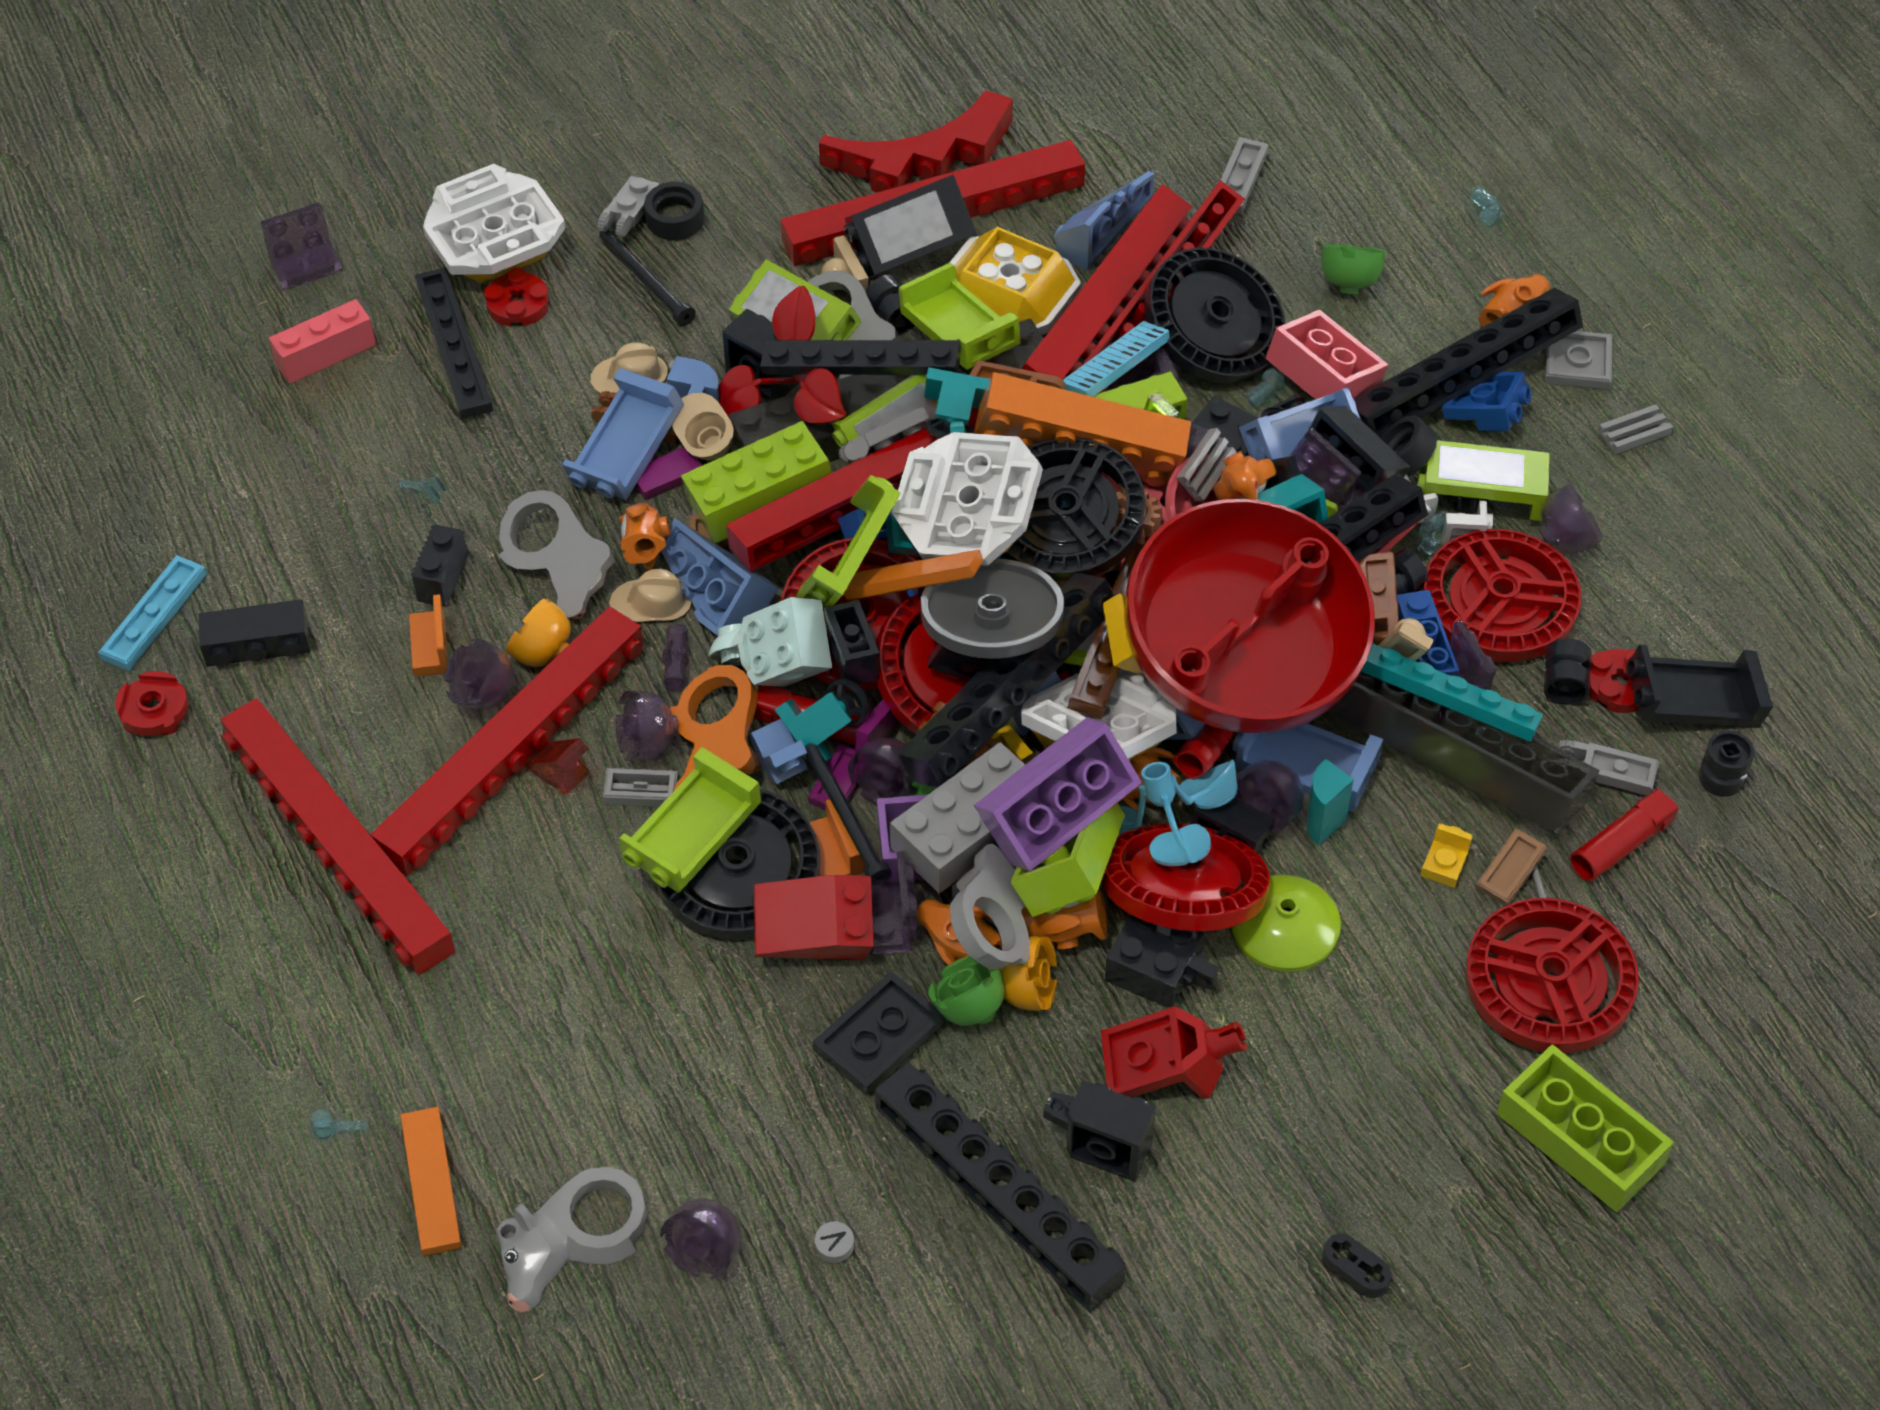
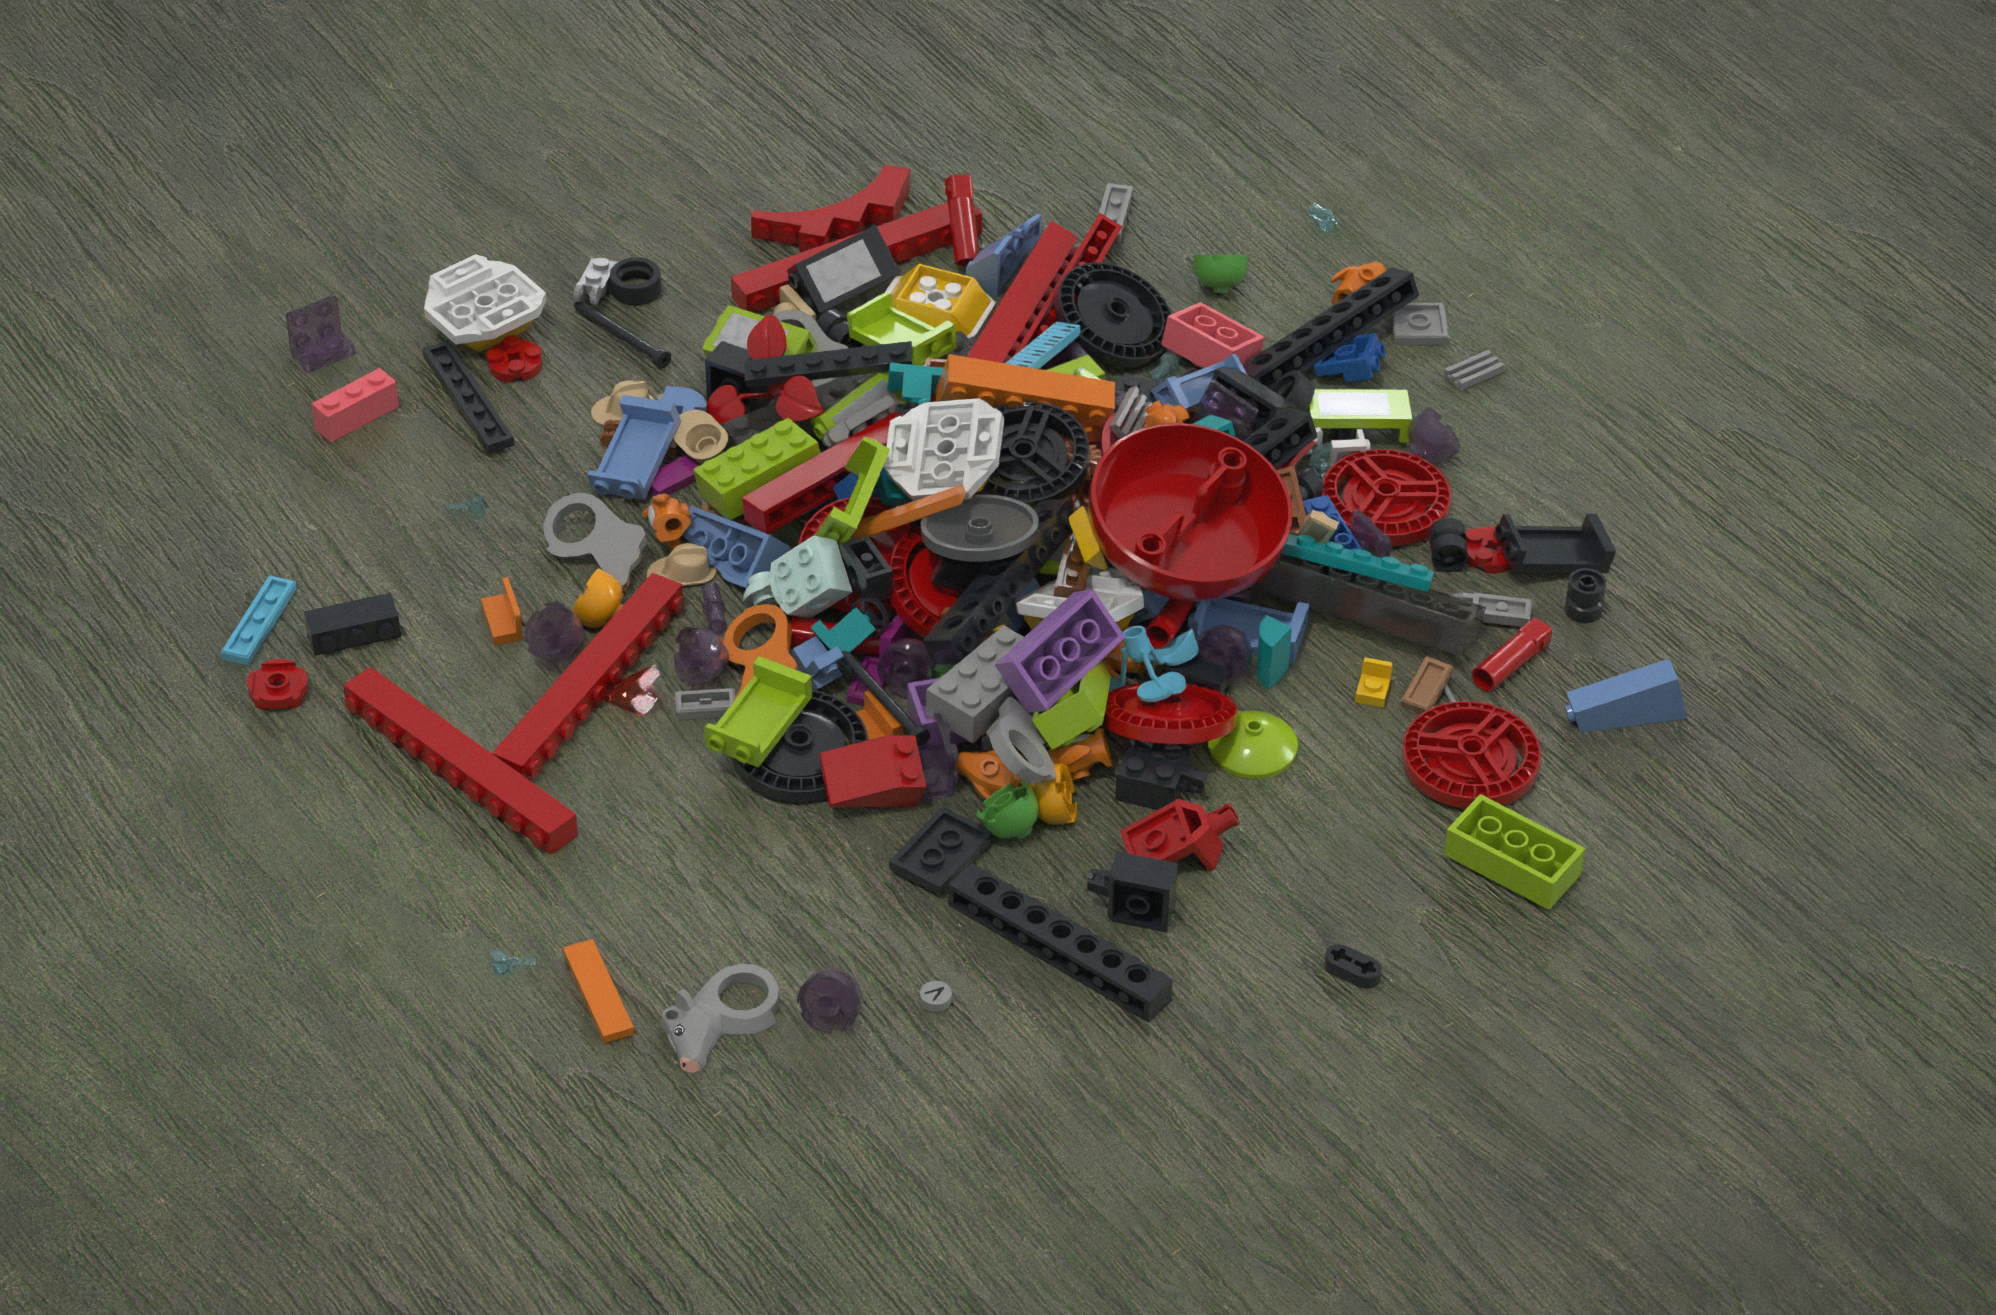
camera: 10 degrees left, 10 degrees down
(439, 564) = (498, 558): black brick -> none
(1059, 170) = (962, 218): none -> red piece
(1758, 920) = (1628, 699): none -> medium blue slope

